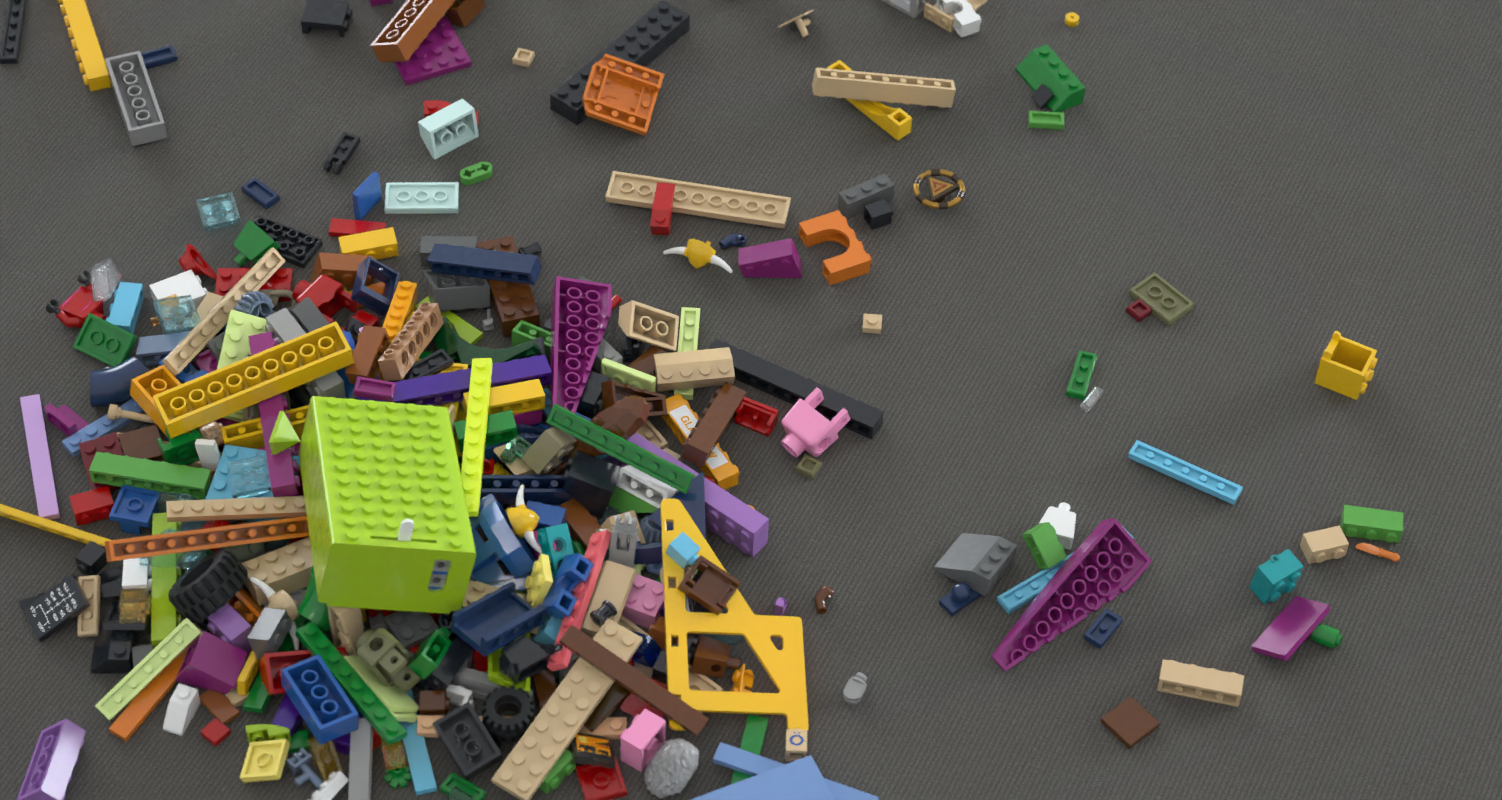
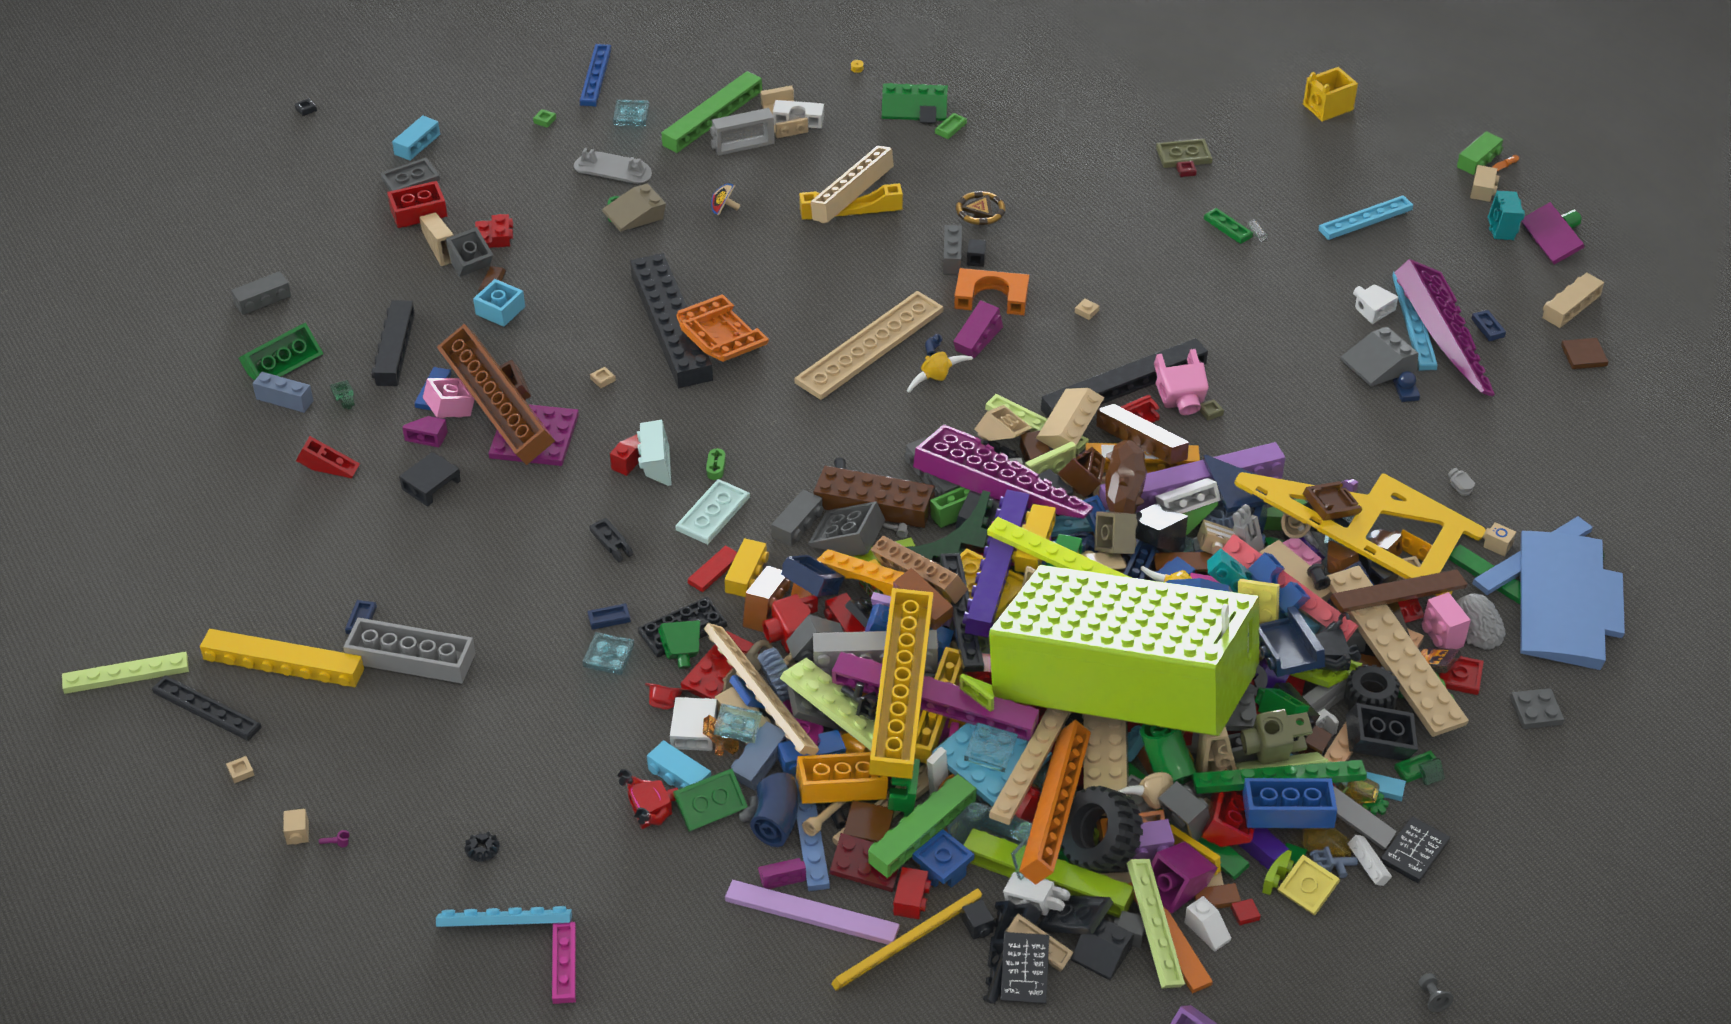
camera: 55 degrees left, 5 degrees down
(104, 279) = (639, 764): clear slope -> none
(134, 605) = (1081, 897): clear yellow brick -> none
(366, 196) = (690, 539): blue tile -> none
(374, 389) = (977, 604): magenta tile -> none
(484, 263) = (853, 490): dark blue brick -> none
(515, 448) = (1101, 552): clear green plate -> none
(620, 448) = (1155, 484): green tile -> none
(662, 209) = (870, 365): red slope -> none
(683, 550) = (1296, 493): medium azure brick -> none
(819, 599) = (1354, 461): reddish brown arm -> none
(1044, 545) = (1395, 314): bright green brick -> none

